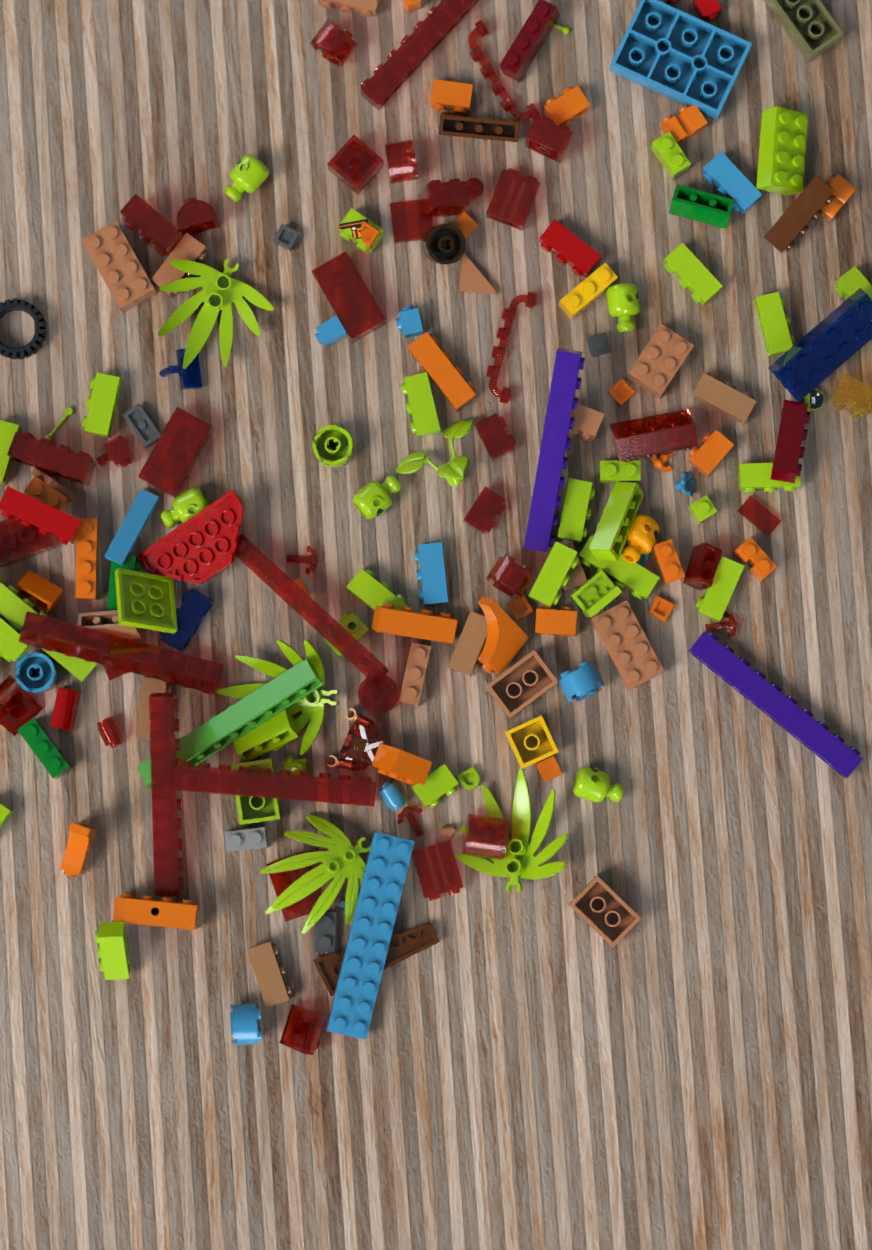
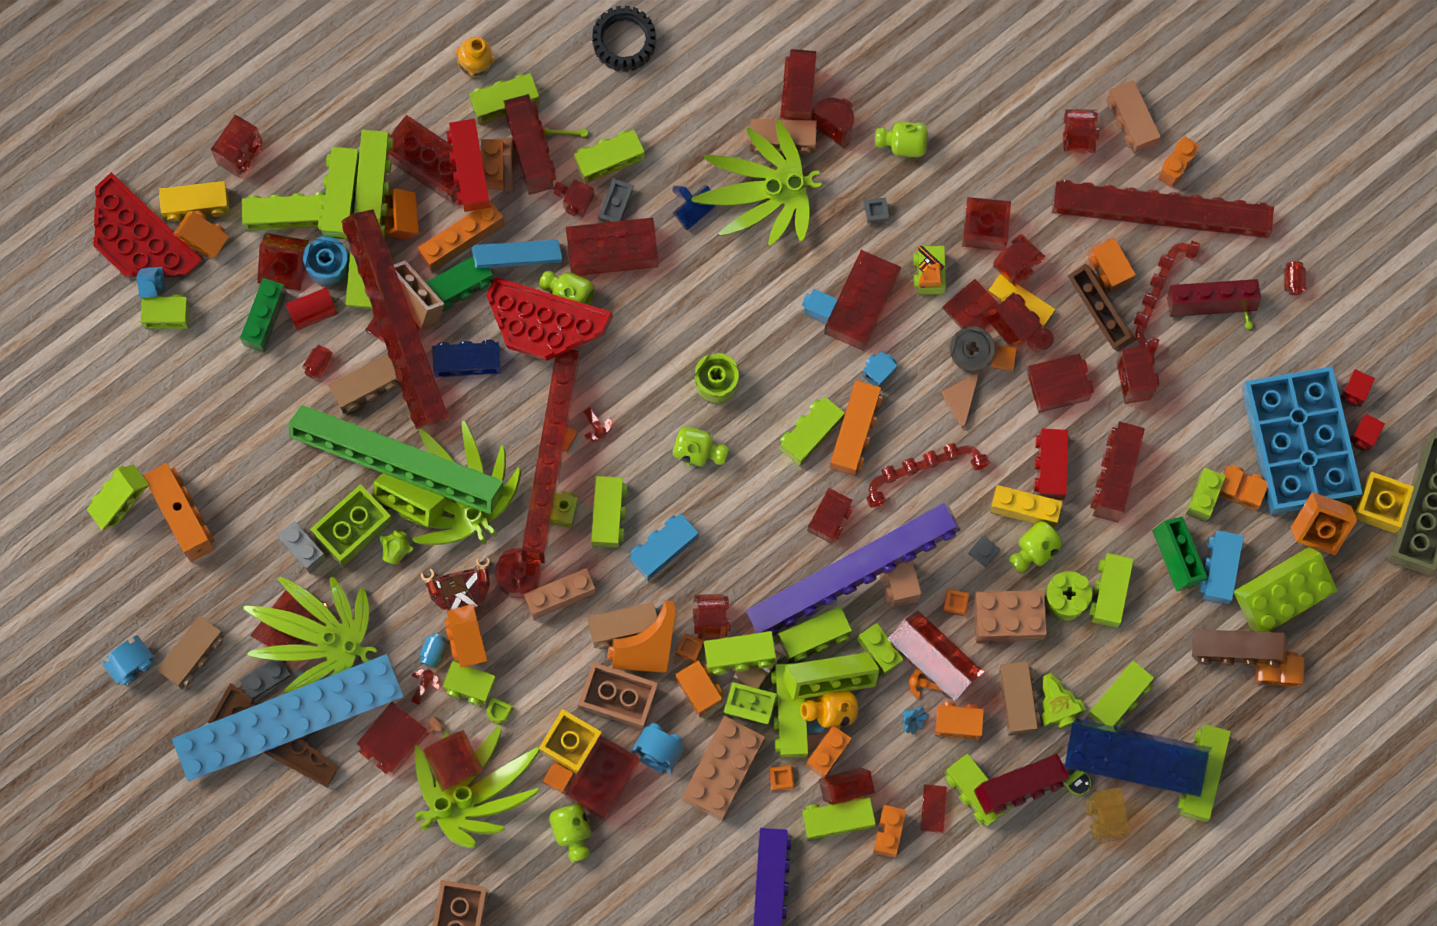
camera: 50 degrees right, 10 degrees down
(78, 848) = (192, 404): orange arch -> none
(119, 266) = (743, 86): nougat brick -> none
(146, 601) = (457, 307): lime plate -> none
(164, 799) = (291, 443): clear red brick -> none
(273, 784) = (366, 531): clear red brick -> none
(303, 1029) = (159, 719): clear red brick -> none
(413, 188) = (1002, 287): none -> yellow tile
(414, 623) = (605, 559): orange brick -> none
(452, 470) = (773, 494): lime plant -> none
(484, 511) = (756, 553): clear red brick -> none
(567, 106) = (1179, 372): orange brick -> none
(574, 737) = (602, 777): none -> clear red brick
(610, 206) = (1118, 471): none -> clear red brick
(675, 297) = (1057, 601): none -> lime brick
(702, 509) = (900, 750): lime brick -> none
(731, 624) = (813, 853): clear red piece -> none
(747, 372) = (1059, 704): none -> lime rock
(754, 87) = (1323, 523): none -> orange brick
(767, 32) = (1383, 502): none -> yellow brick

